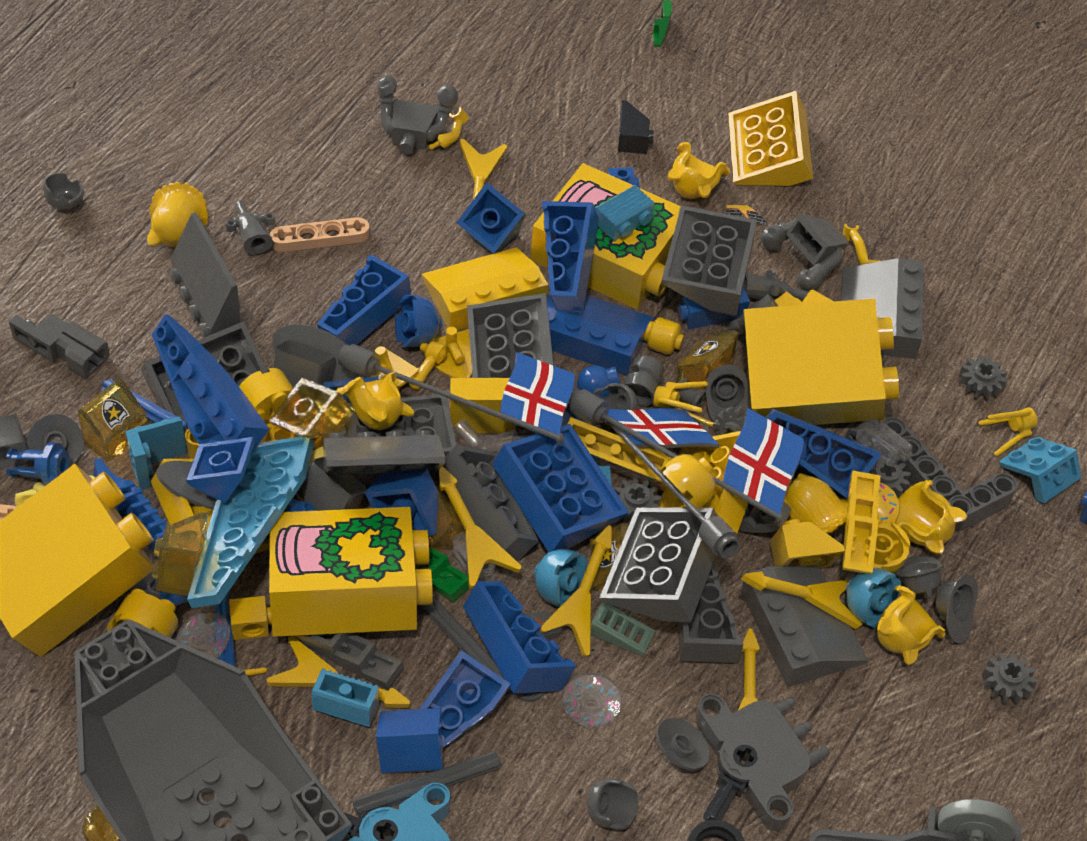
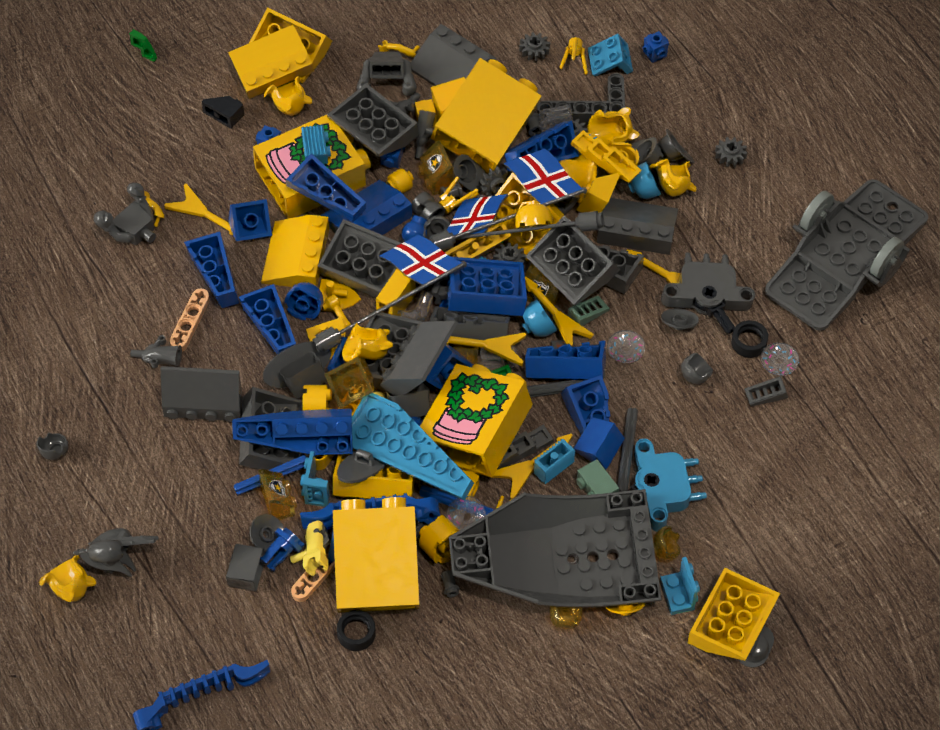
camera: 55 degrees left, 5 degrees up
(62, 339) = (185, 496): dark grey plate -> none
(171, 212) = (124, 390): yellow hair -> none
(179, 554) = (425, 489): clear yellow slope -> none
(220, 467) = (368, 442): blue slope -> none
(348, 762) = (595, 479): none -> sand green piece
(402, 219) = (213, 264): none -> blue wedge
(729, 134) = (271, 61): none -> yellow slope
(744, 211) = (329, 92): sticker -> none
(822, 595) = (630, 205): yellow piece -> none

